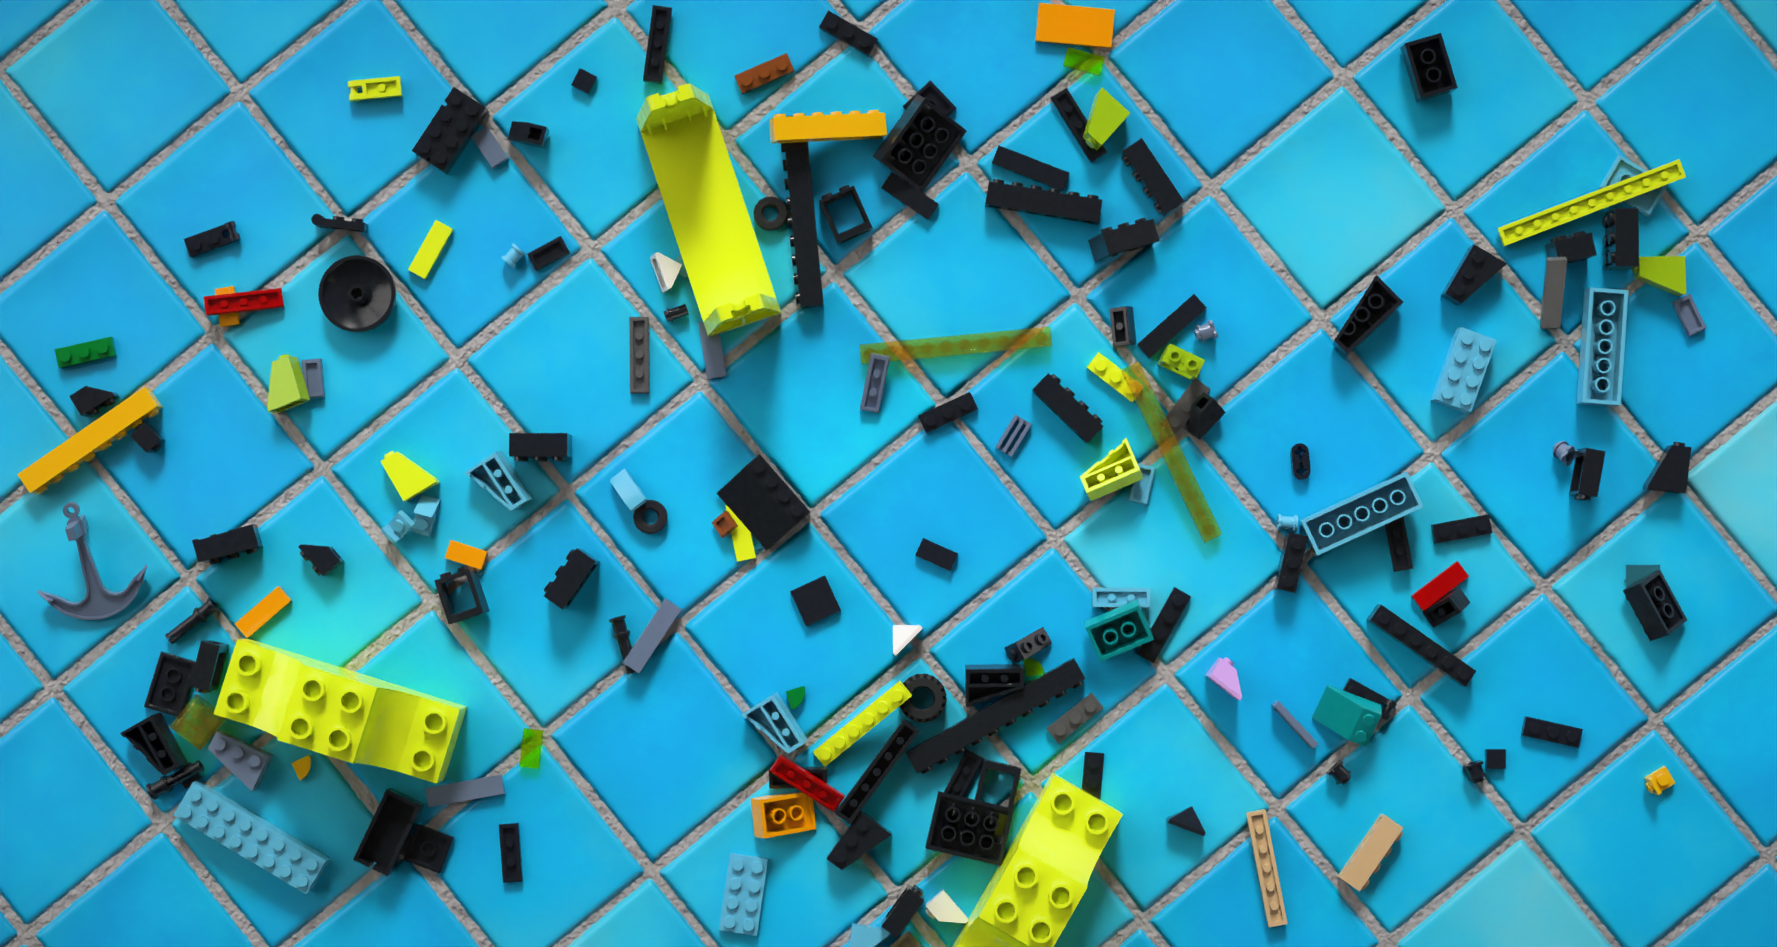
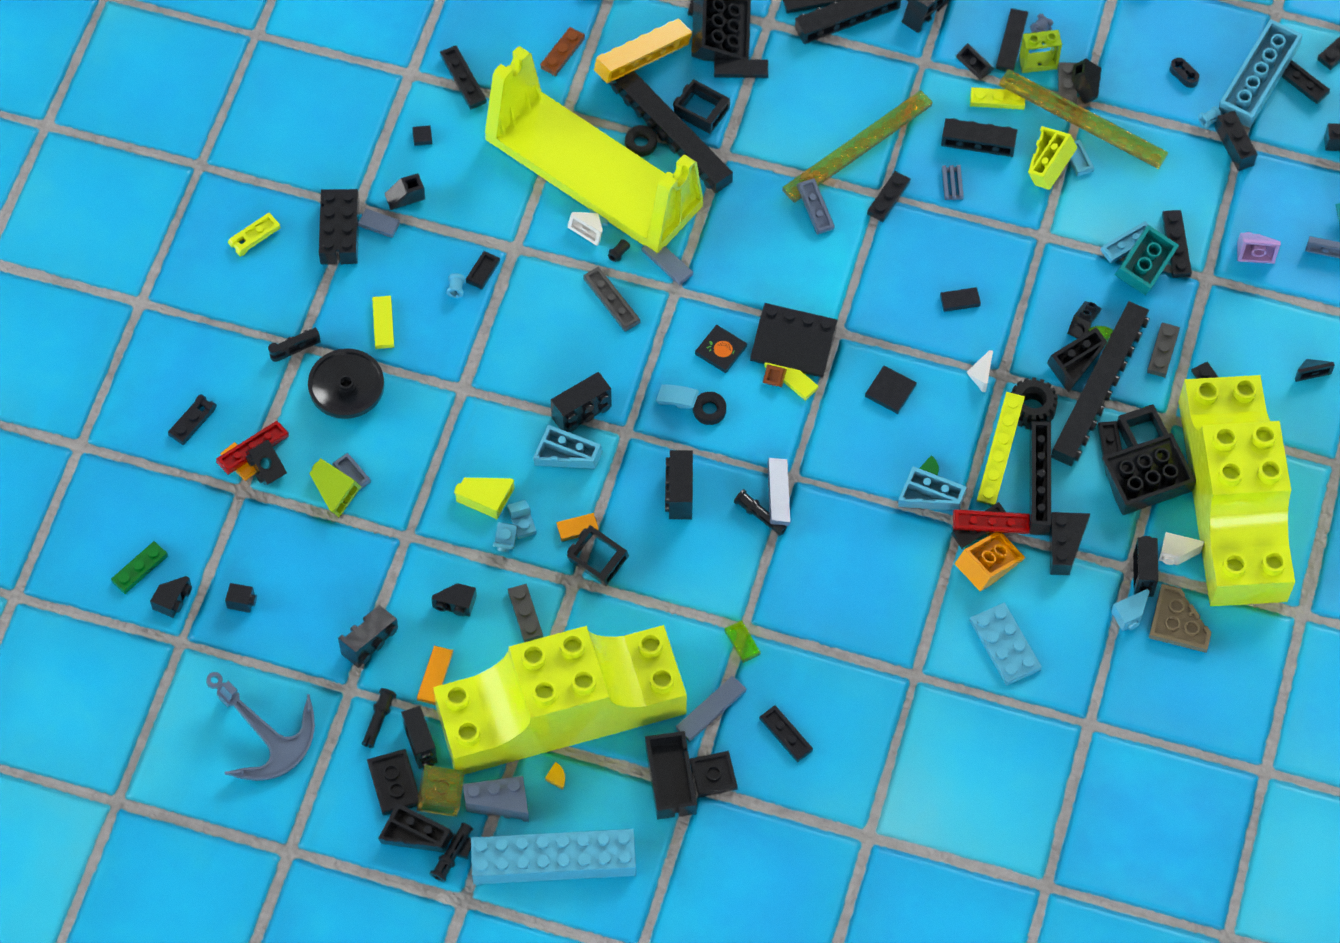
camera: 35 degrees left, 25 degrees down
(89, 441) = (190, 630): yellow brick -> none
(245, 317) = (273, 471): none -> black brick
(372, 604) = (525, 613): none -> dark grey plate
(699, 466) = (721, 348): none -> black tile

